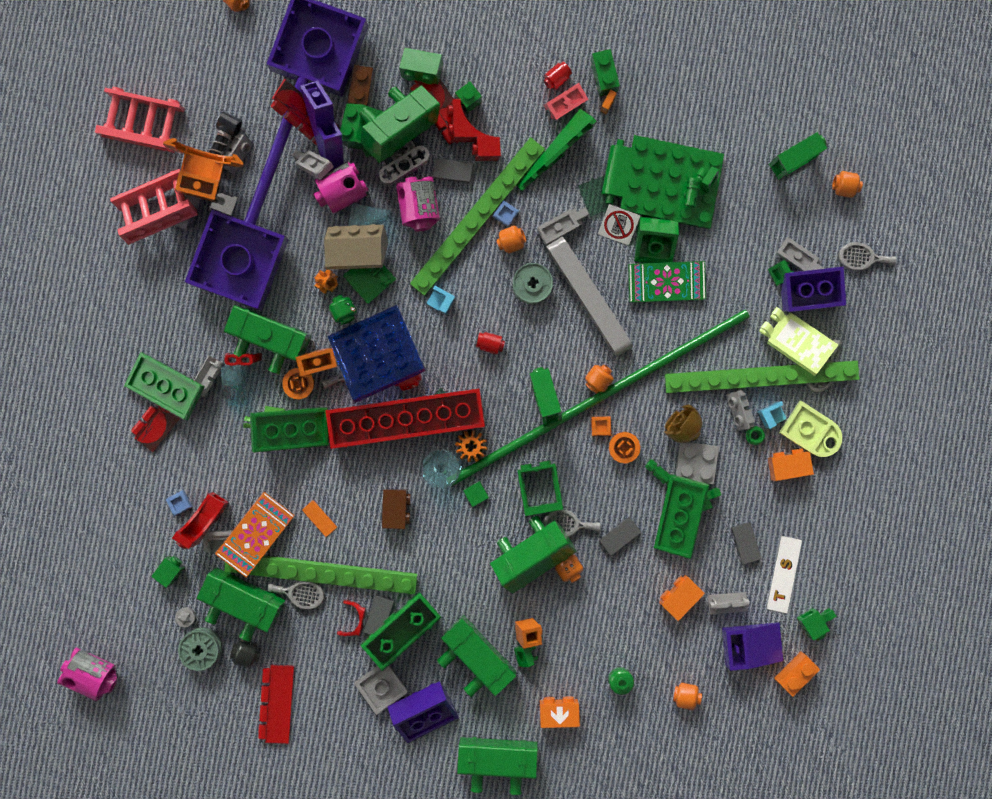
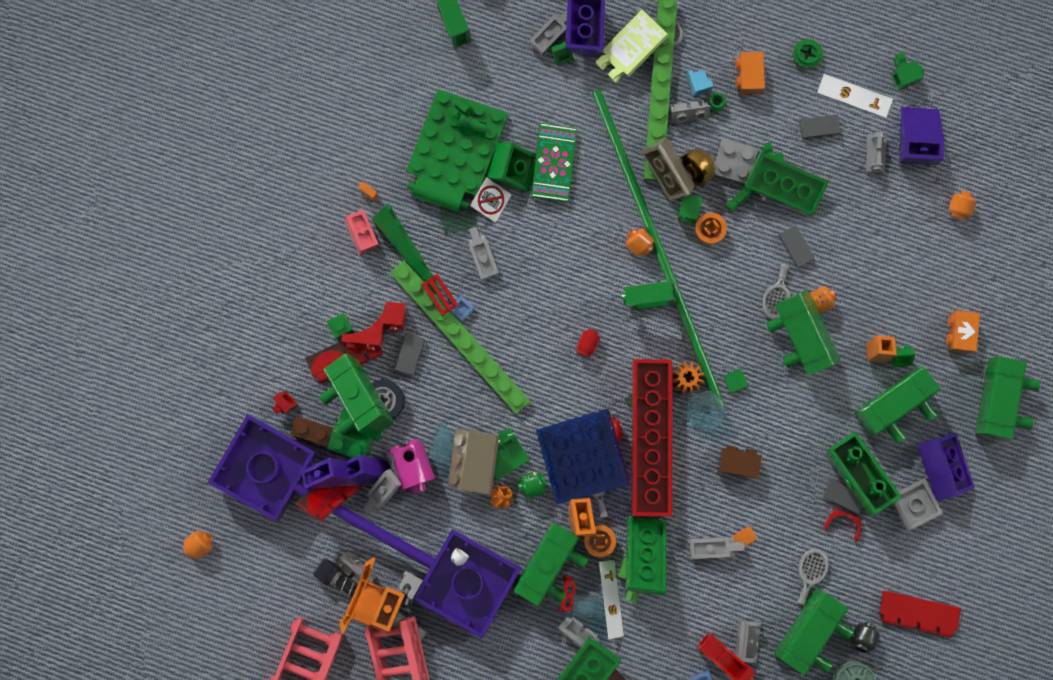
camera: 75 degrees left, 5 degrees down
(244, 403) = (611, 599): none -> white sticker
(254, 534) = (746, 607): orange tile -> none
(258, 247) = (459, 557): none -> white hinge
(309, 496) = (714, 547): none -> light grey hinge
(333, 574) = (793, 548): bright green plate -> none
(385, 55) = (284, 403): none -> red tile
(405, 157) = (388, 388): light grey beam -> none
(418, 203) = (438, 392): dark pink cylinder -> none
(421, 66) = (301, 368): brick -> none
(441, 300) = (538, 385): medium azure panel -> none
(508, 184) = (447, 292): none -> red tile
(511, 239) = (488, 306): orange head -> none
(534, 272) = (526, 299): sand green wheel -> none
(541, 508) = (759, 316): green window -> none
(557, 76) = (334, 236): red brick -> none
(589, 296) = (557, 239): light grey beam -> none
(601, 426) = (685, 248): orange tile -> none
(604, 72) = (339, 190): green brick -> none
(621, 681) = (939, 266): green head -> none
(640, 423) = (689, 209): none -> green brick
(677, 396) = (668, 169): none -> dark tan slope
(681, 597) = (865, 196): orange brick -> none
(797, 673) = (953, 98): orange brick -> none
(811, 430) = (719, 48): yellowish green plate -> none
(823, 528) = (816, 53): none -> green gear

